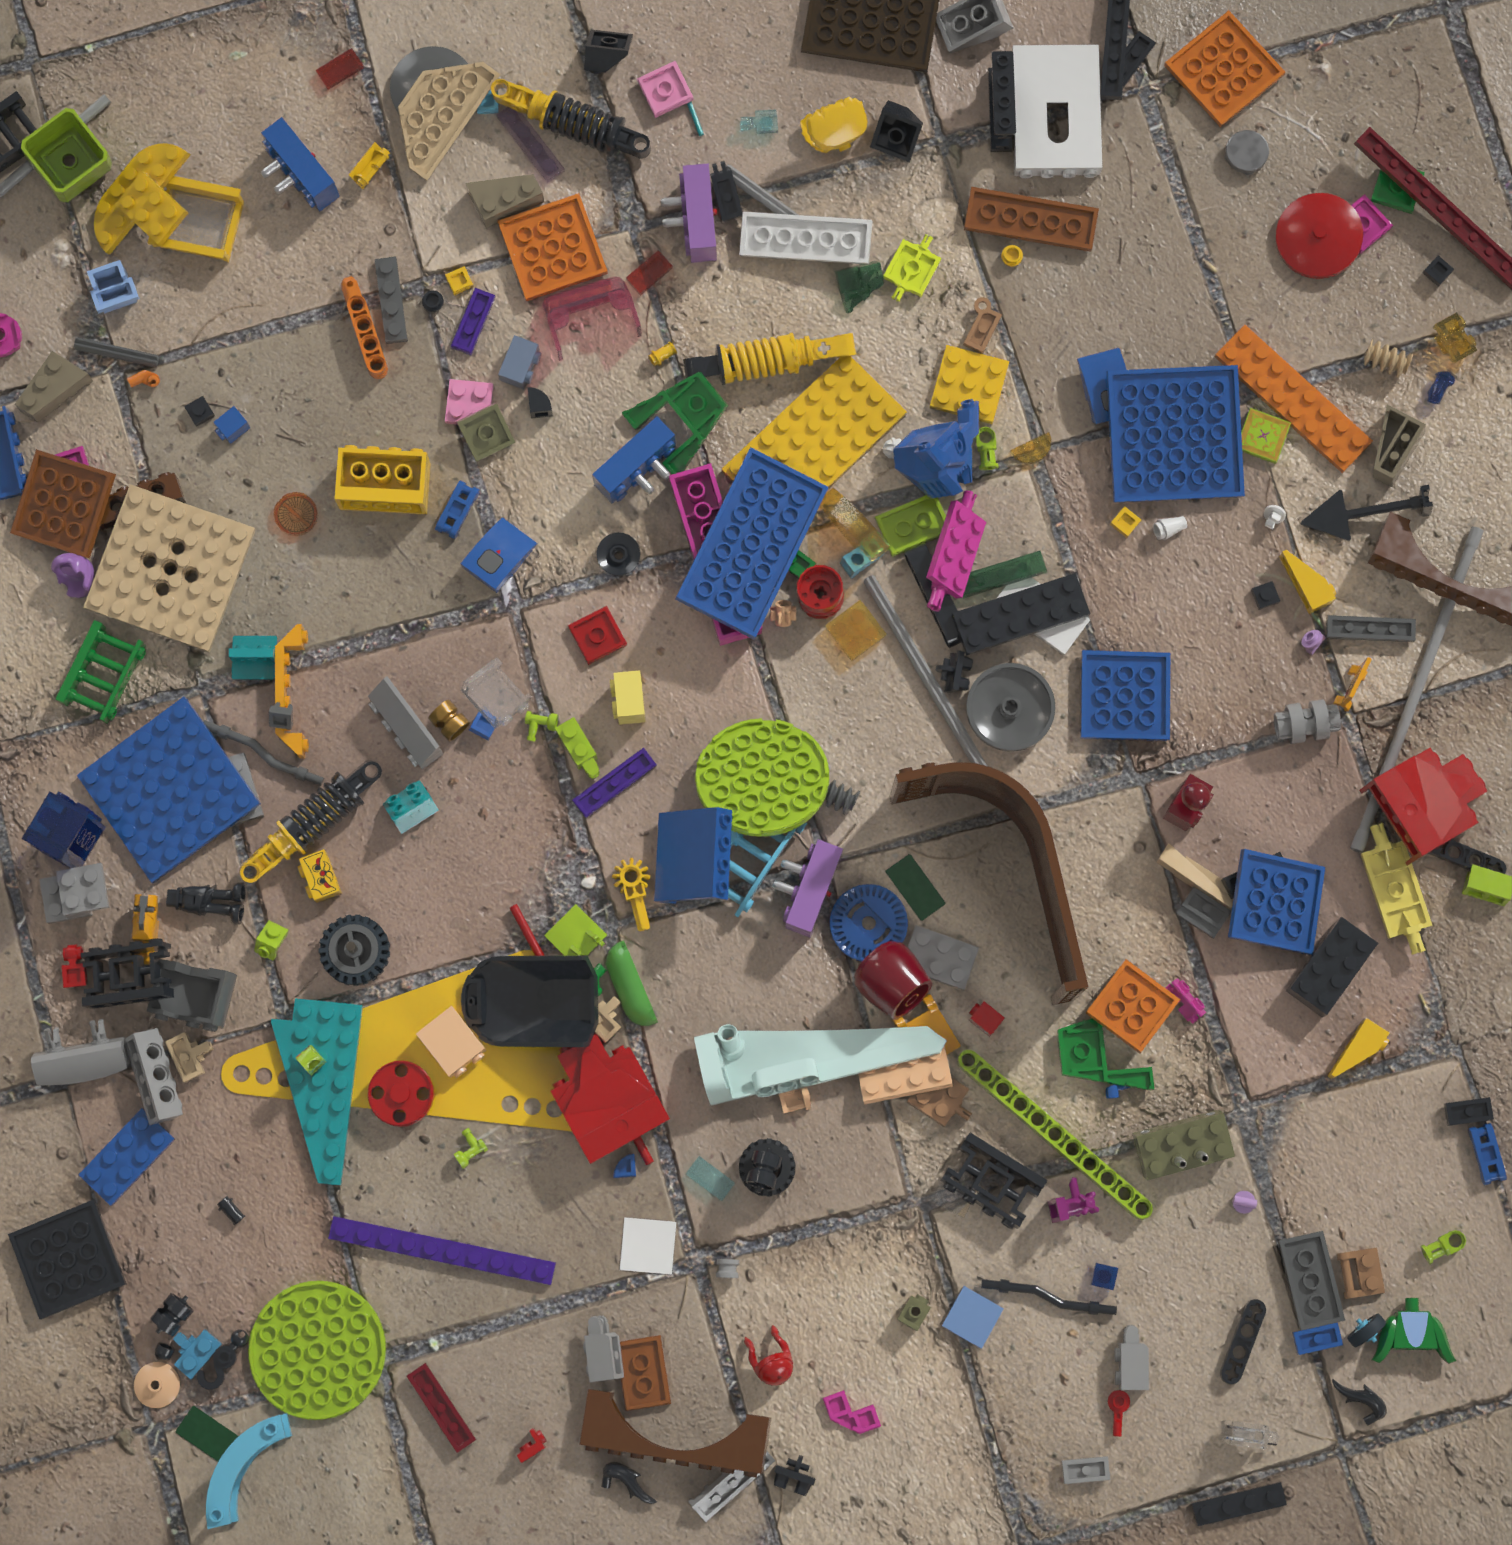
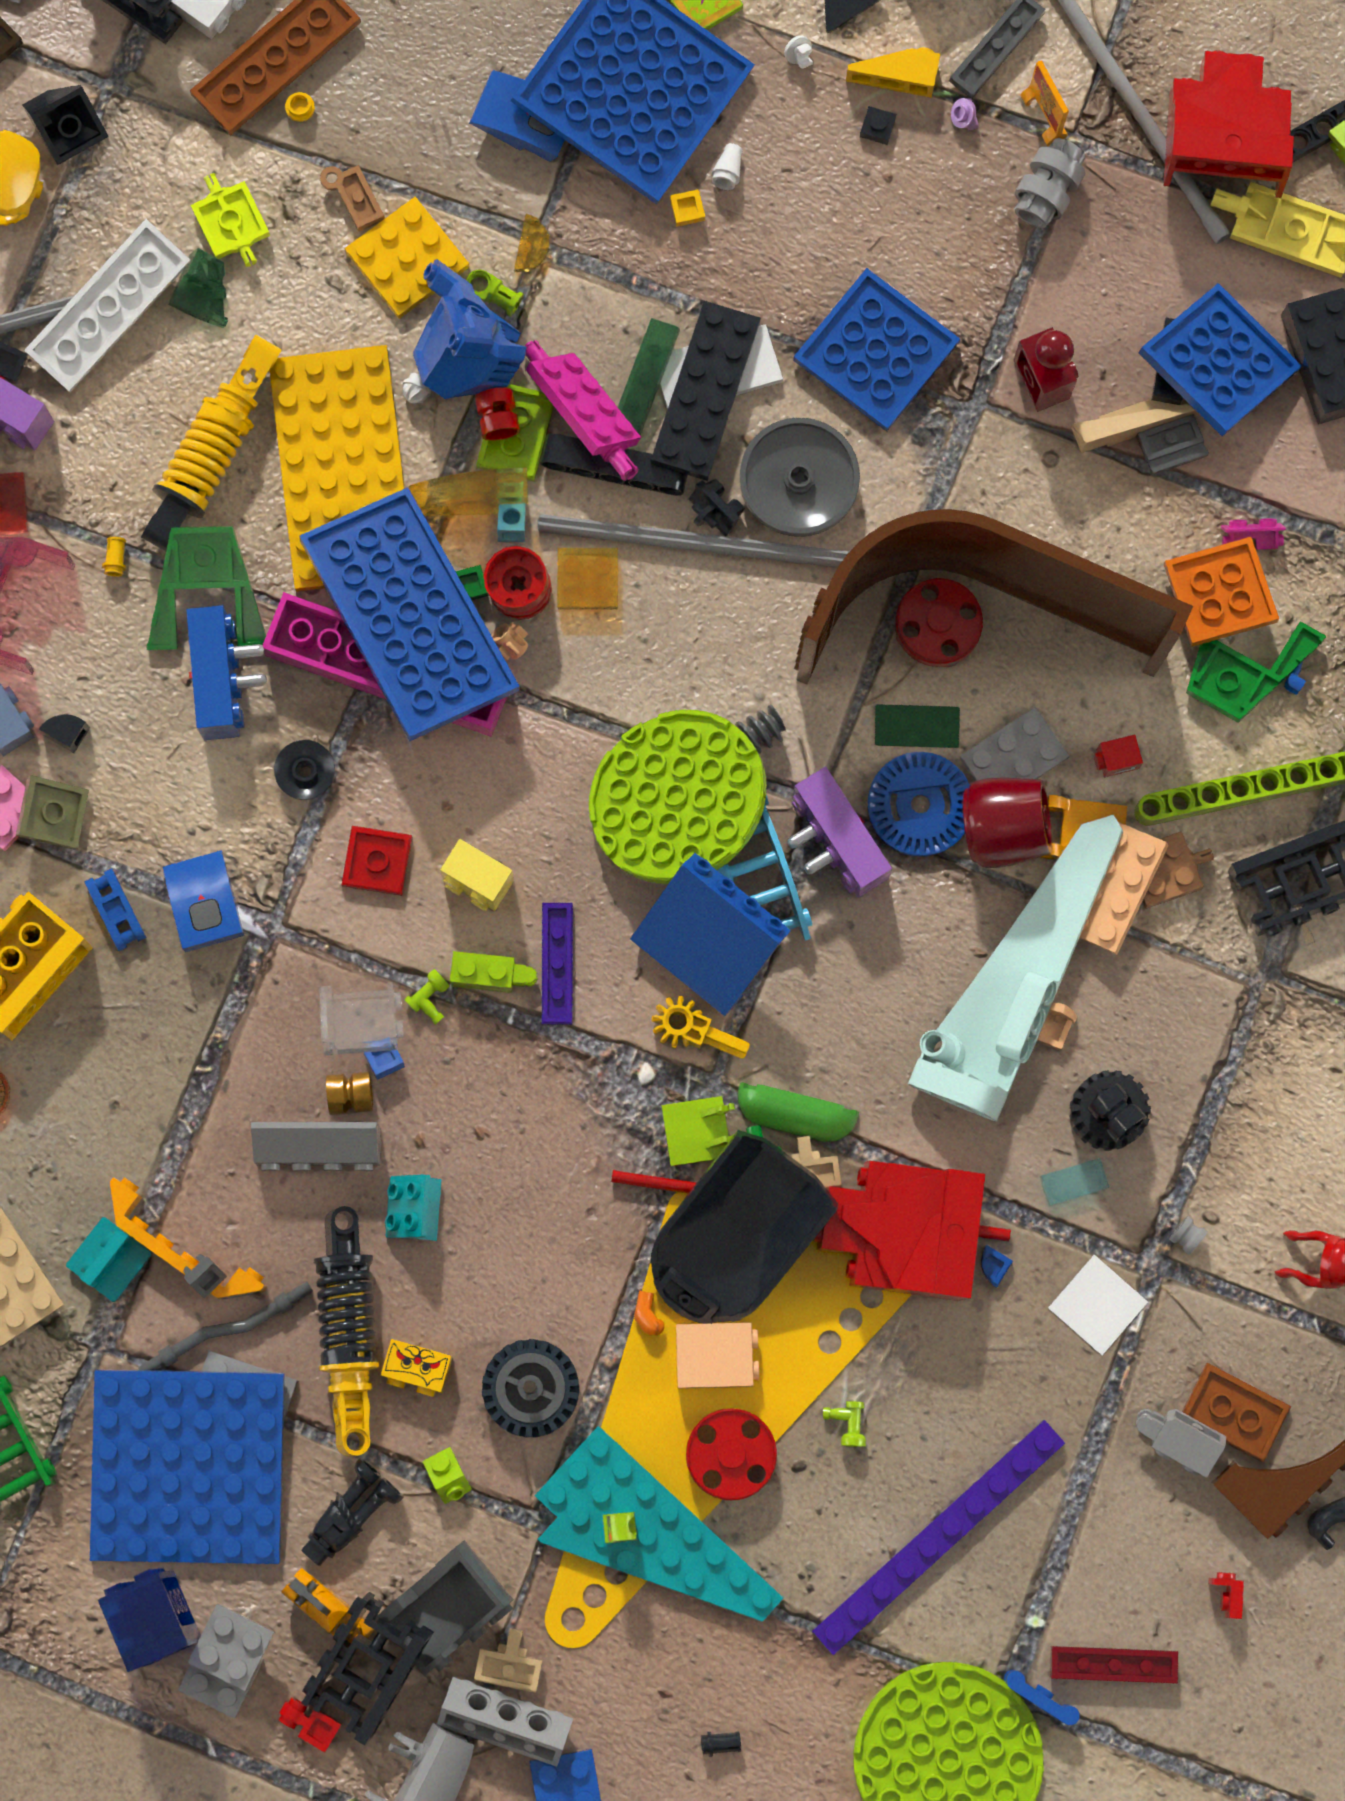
camera: 55 degrees left, 0 degrees up
(390, 1378) = (1041, 1698): none -> blue plate
(445, 984) = (645, 1317): none -> orange arm
(906, 510) = (497, 419): none -> red wheel
(986, 853) = (938, 622): none -> red piece

